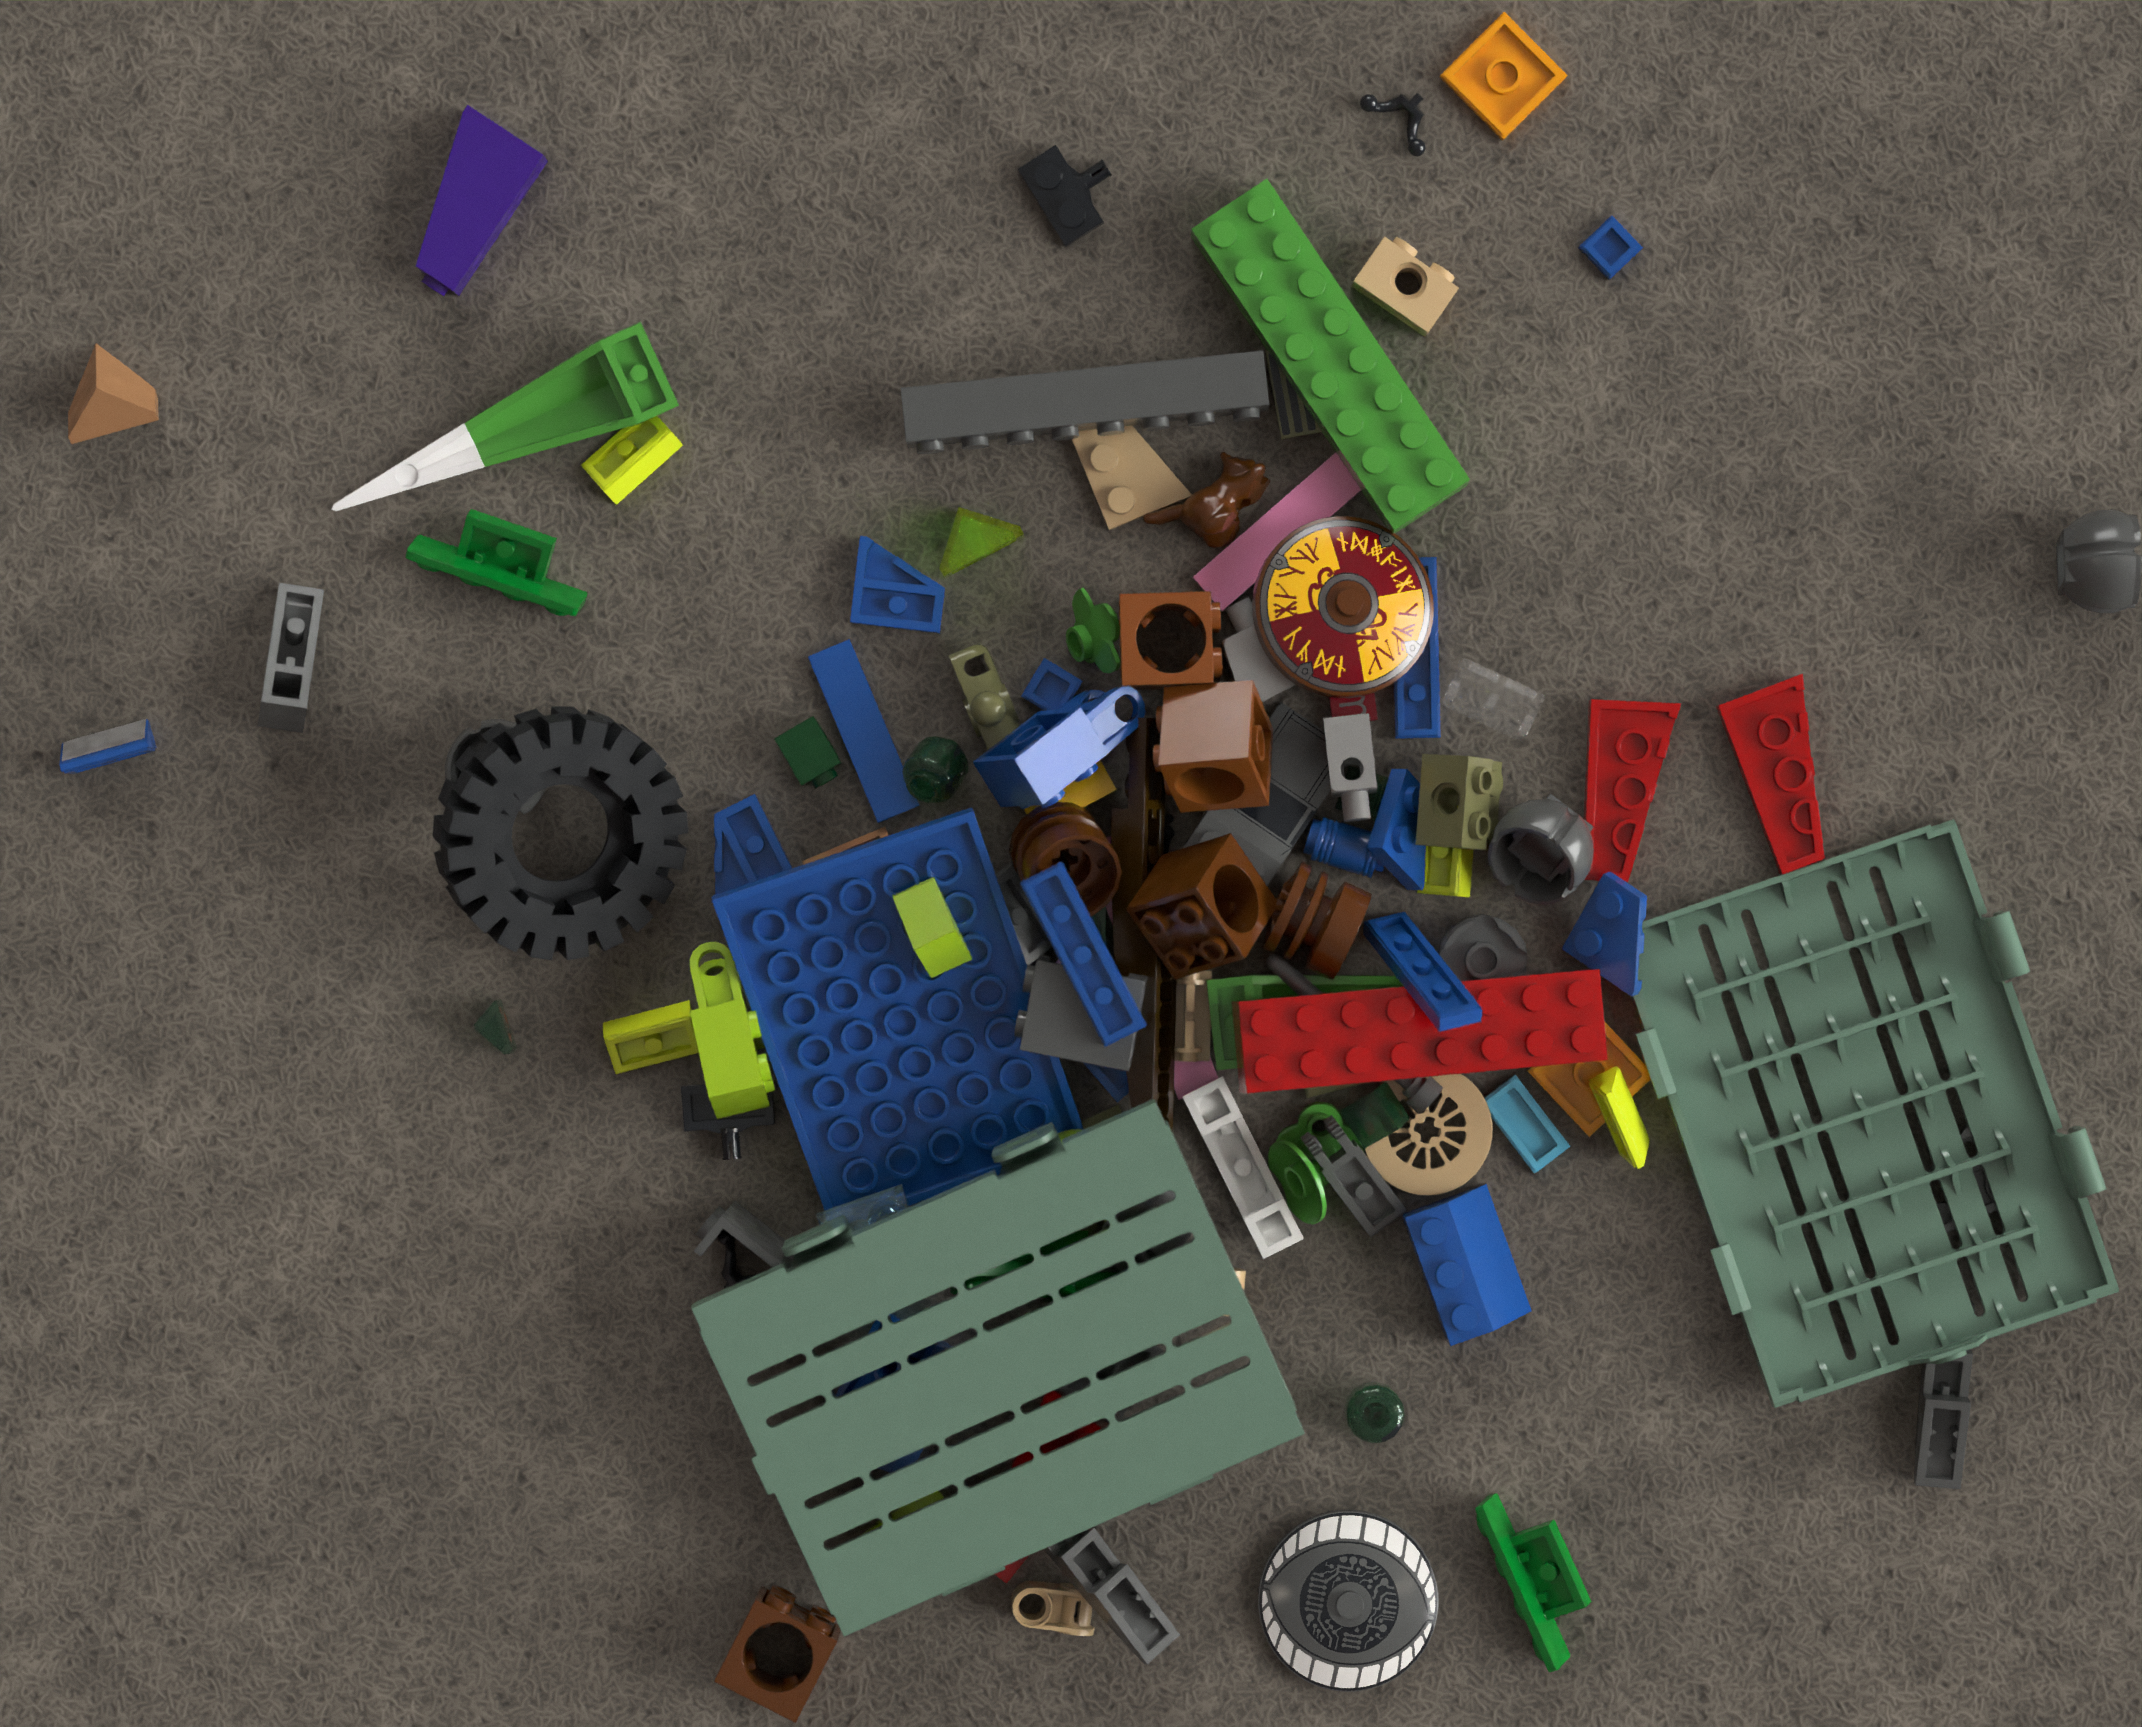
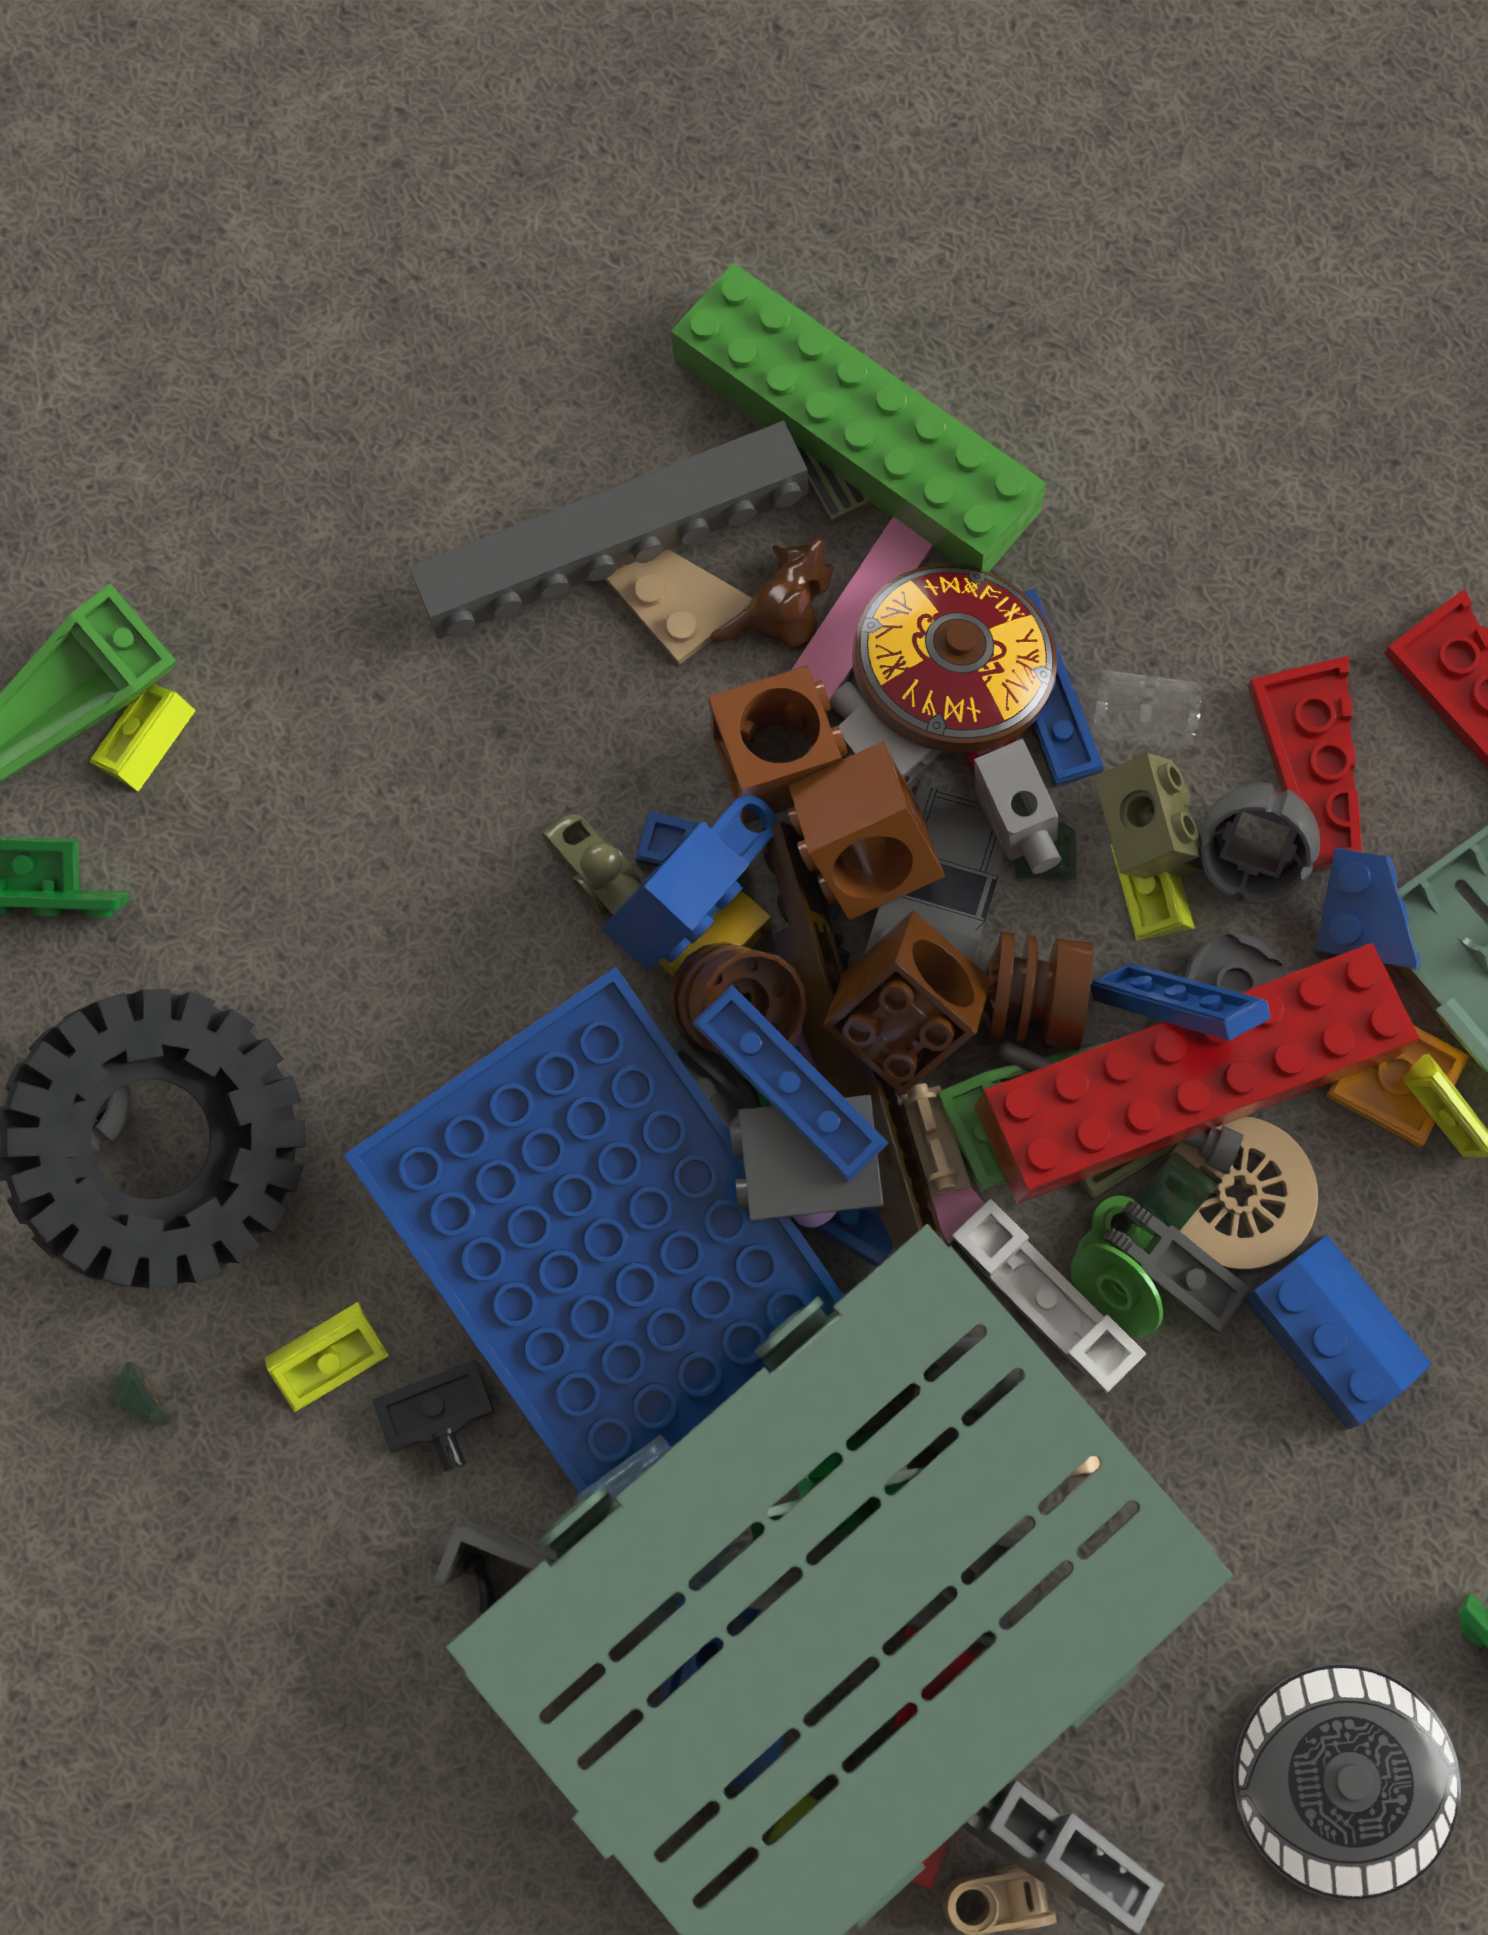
camera: 15 degrees left, 15 degrees down
(728, 1037) = (410, 1321): lime brick -> none
(745, 846) = (368, 1098): blue wing -> none
(809, 753) = (418, 983): dark green brick -> none
(863, 730) = (472, 945): blue tile -> none
(894, 592) = (465, 792): blue wing -> none
(931, 927) = (609, 1114): lime slope -> none
(935, 769) = (563, 958): clear green head -> none
(975, 538) = (538, 707): clear neon green slope -> none
(1065, 193) = (530, 351): black plate -> none
(1094, 633) = (694, 762): bright green plate -> none
(1341, 847) = (1043, 910): blue head -> none
(1370, 1428) = (1314, 1526): clear green head -> none
(1396, 828) = (1095, 874): blue wing -> none
(1415, 146) = (876, 208): black piece -> none
(1415, 310) = (923, 356): tan brick -> none
(1503, 76) = (940, 123): light orange tile -> none
(1525, 1124) = (1347, 1154): medium azure tile -> none
(1610, 247) = (1105, 247): blue tile -> none

